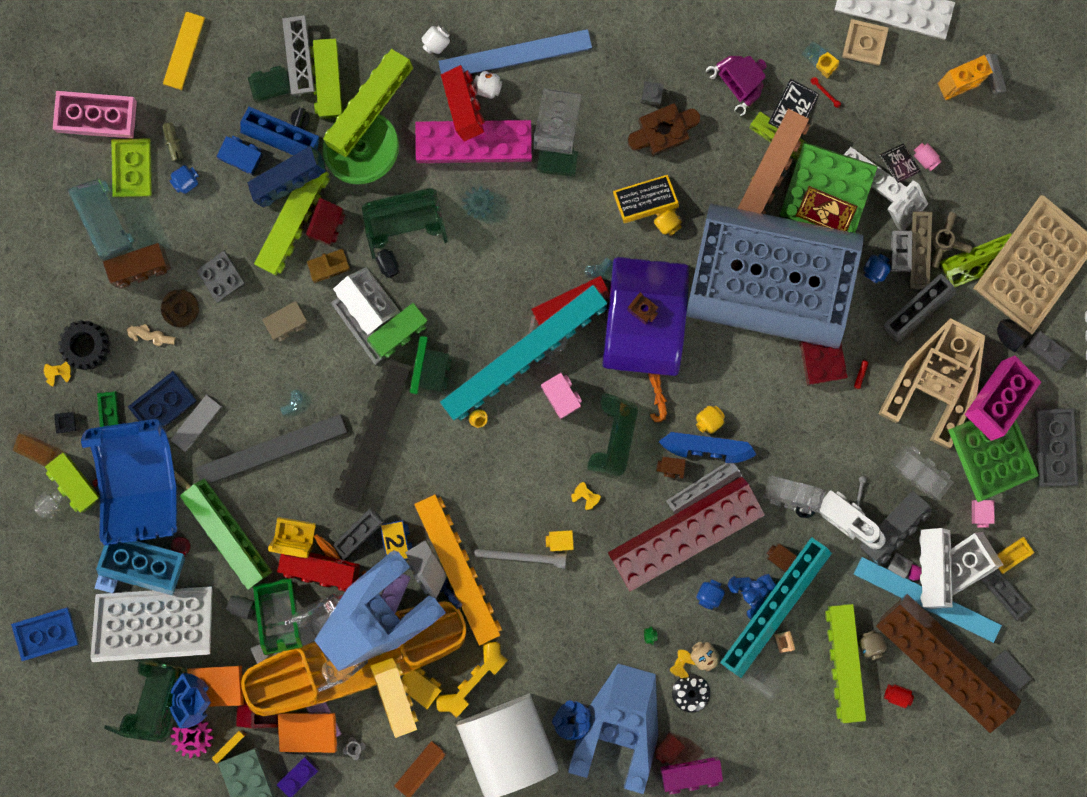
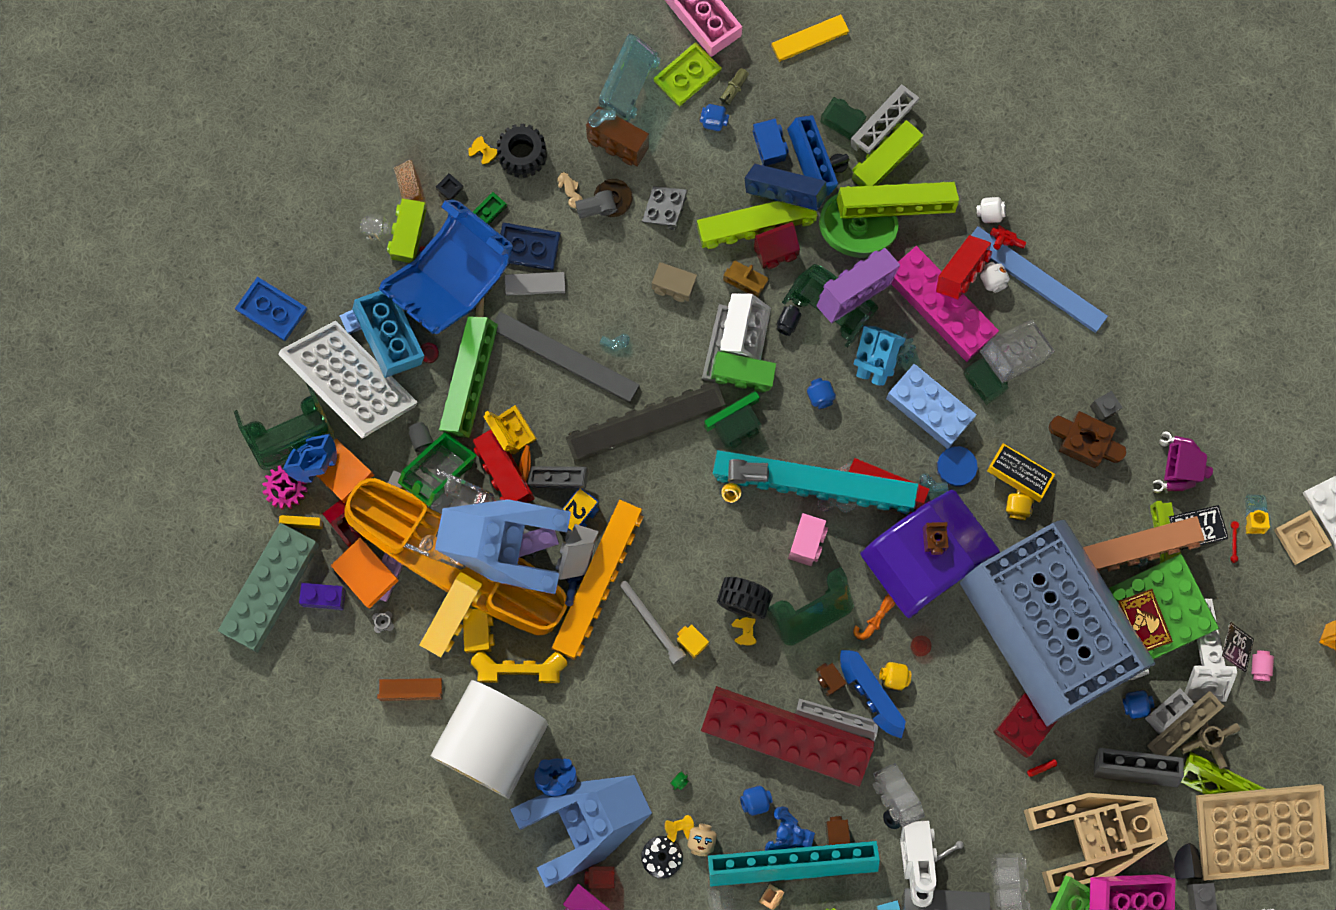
camera: 50 degrees right, 10 degrees down
(113, 267) = (599, 116): none -> clear light blue arm
(178, 324) = (601, 204): none -> dark grey piece
(409, 193) = (857, 285): none -> medium lavender brick
(463, 289) = (821, 393): none -> blue head
(465, 48) = (1006, 238): none -> red piece
(470, 223) = (877, 354): none -> dark azure hips
(473, 399) = (742, 471): none -> dark grey piece
(542, 218) = (931, 406): none -> light blue brick
(563, 478) = (744, 597): none -> black tyre
(600, 239) = (957, 466): none -> blue tile
(704, 382) = (920, 646): none -> clear red tile

